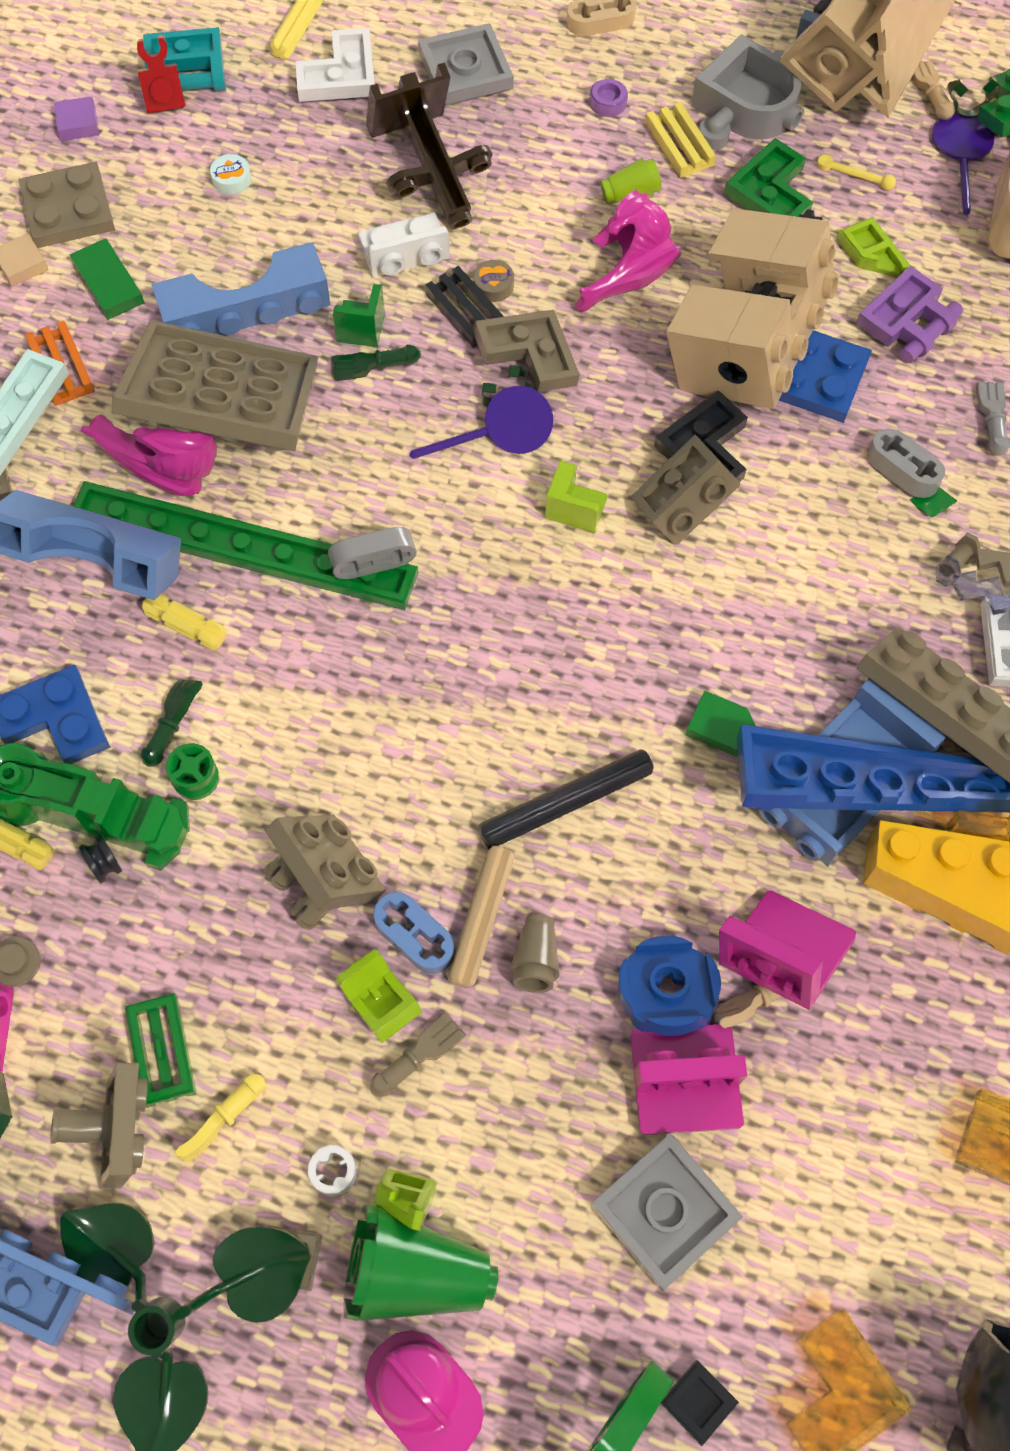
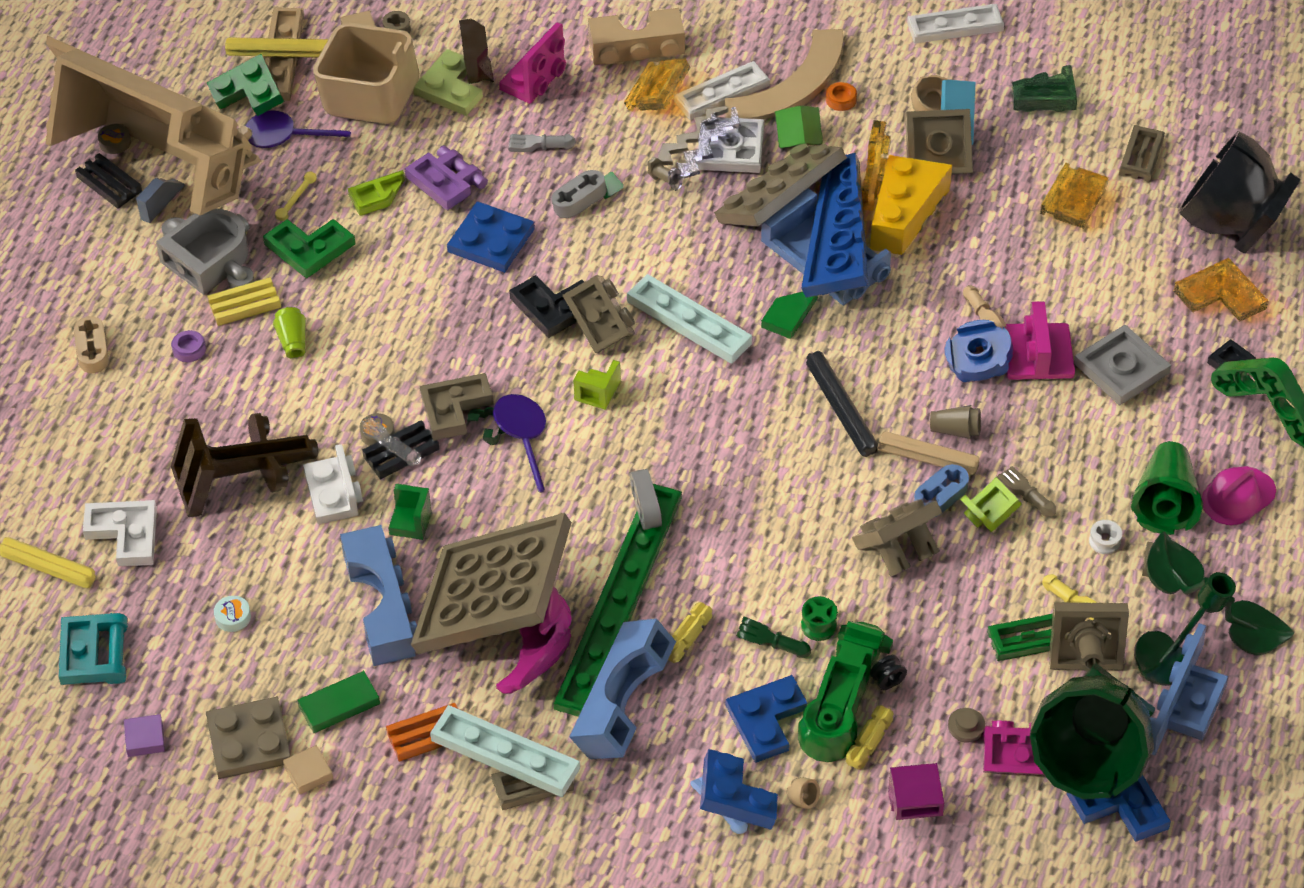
camera: 85 degrees left, 15 degrees down
(159, 81) = (125, 658): red plate -> none
(360, 364) = (450, 521): dark green piece -> none
(405, 1197) = (1124, 484): lime tile -> none
(468, 278) = (378, 432): none -> clear piece
(472, 60) = (136, 439): light grey plate -> none
(646, 248) = (367, 325): dark pink hair -> none
(697, 602) = (689, 318): none -> light aqua plate
(762, 318) = (478, 251): tan piece -> none
(785, 948) = (955, 285): dark pink bracket -> none
(992, 89) = (240, 108): dark green piece -> none

